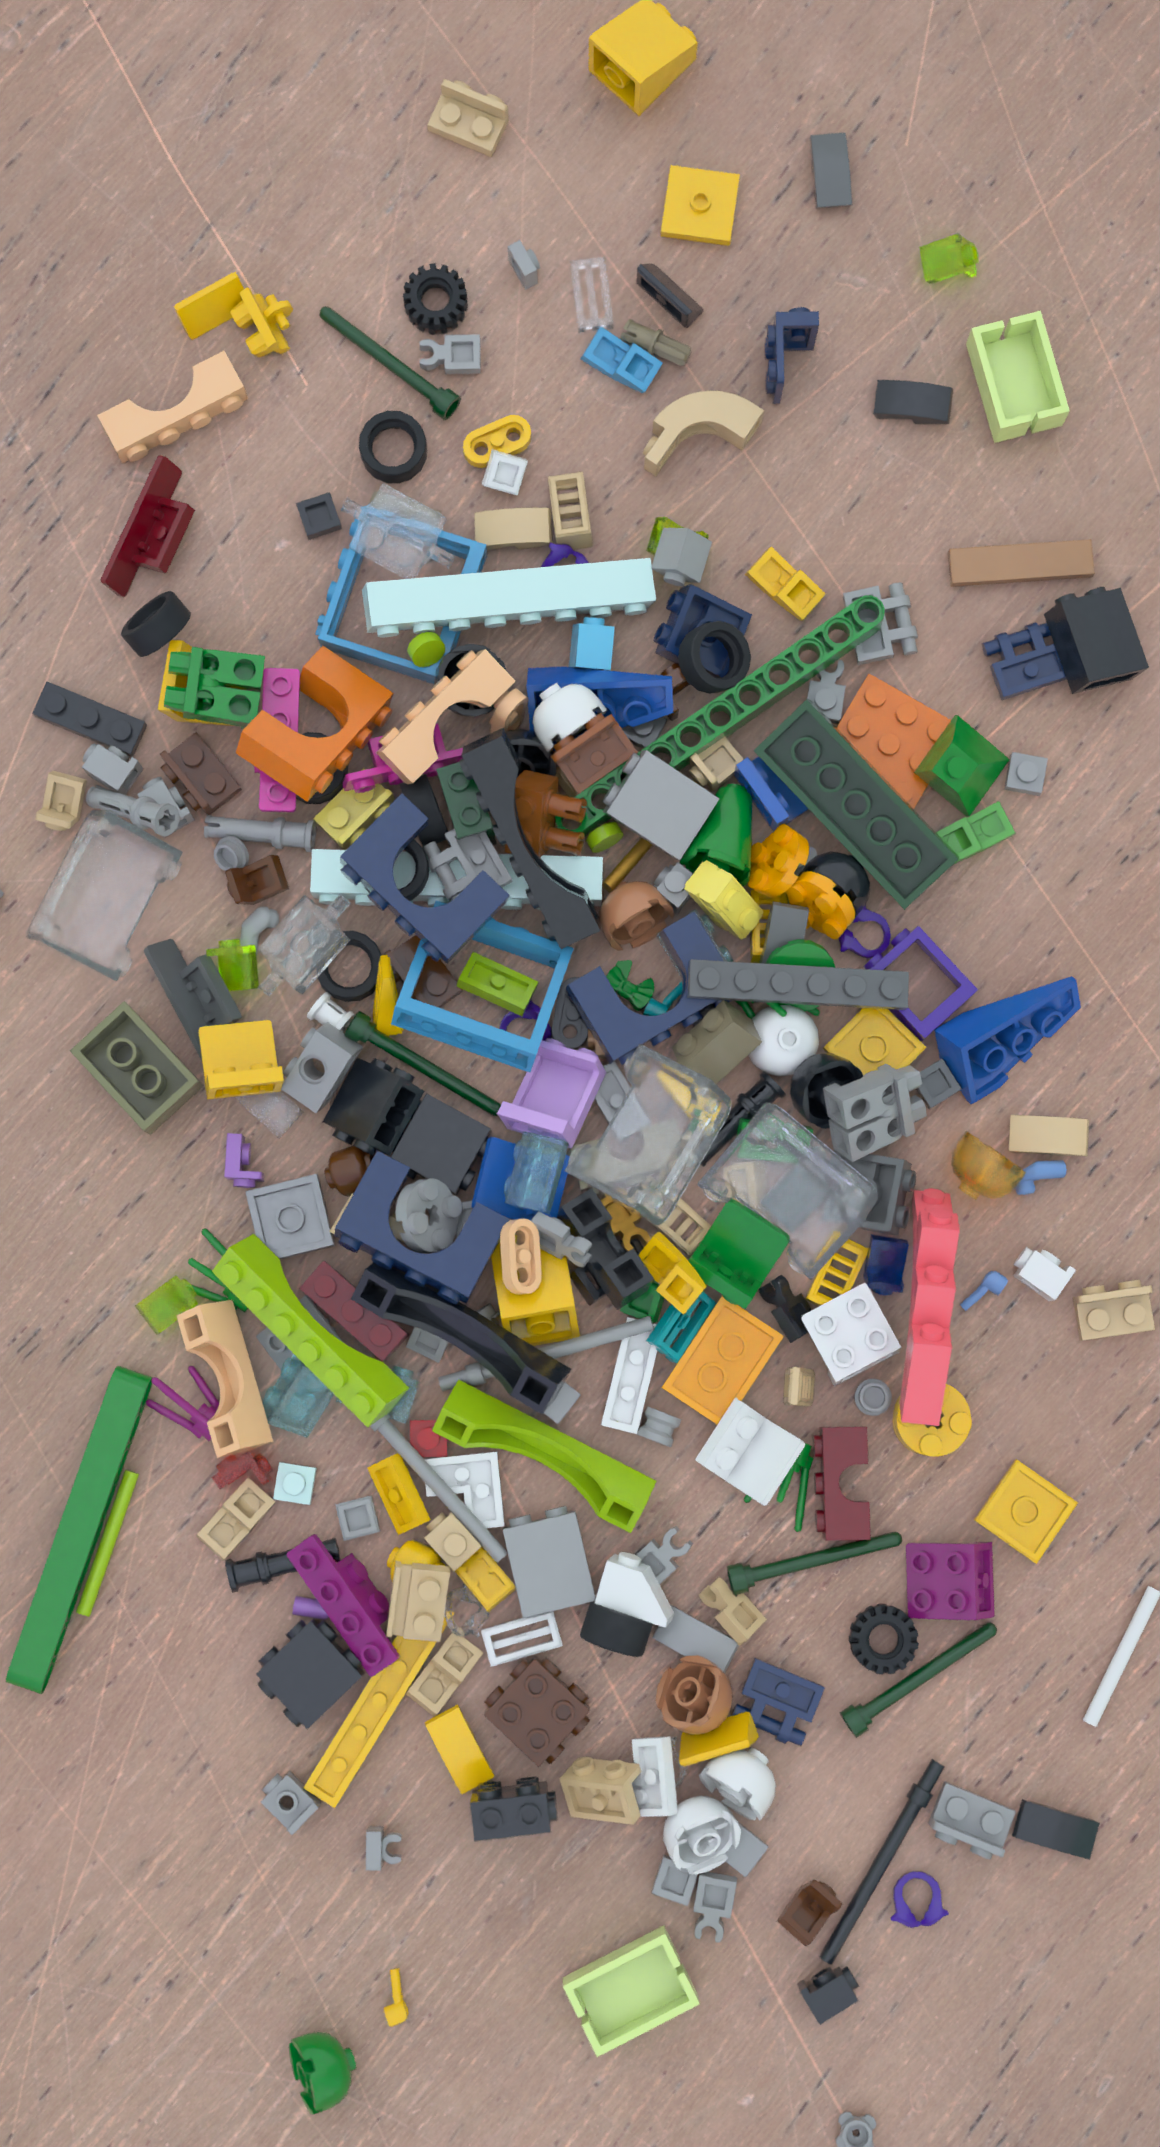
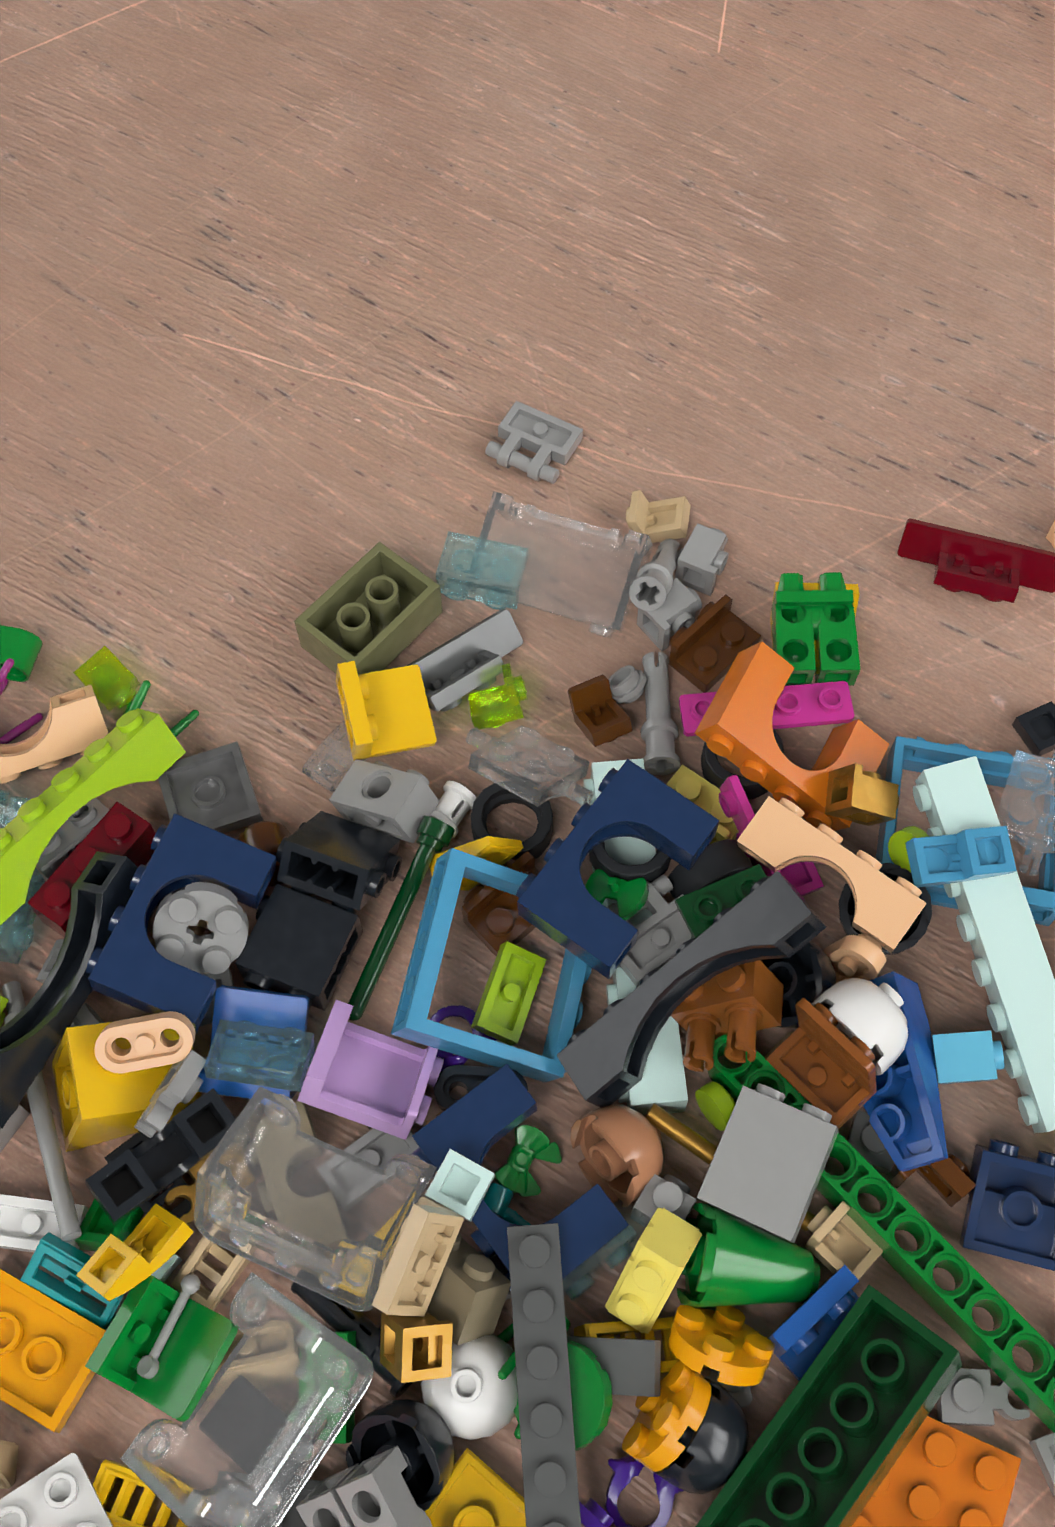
camera: 85 degrees right, 20 degrees down
(89, 719) = (754, 538): black plate -> none
(113, 961) = (481, 570): none -> clear light blue bracket
(155, 624) = (873, 573): black tyre -> none
(239, 1154) = (272, 728): medium lavender bracket -> none
(256, 923) = (546, 718): light grey arm -> none
(375, 679) = (861, 796): none -> pearl gold brick
(440, 874) = (629, 894): none -> green piece
(448, 614) = (960, 856): none -> dark azure slope
(656, 1026) = (460, 1184): none -> light aqua plate
(705, 1058) = (418, 1259): none -> tan bracket
(737, 650) = (1016, 1246): black tyre -> none
(747, 1268) = (149, 1364): none -> light grey hinge
(758, 1071) = (416, 1347): none -> pearl gold brick
(789, 1307) = (91, 1436): black plate -> none

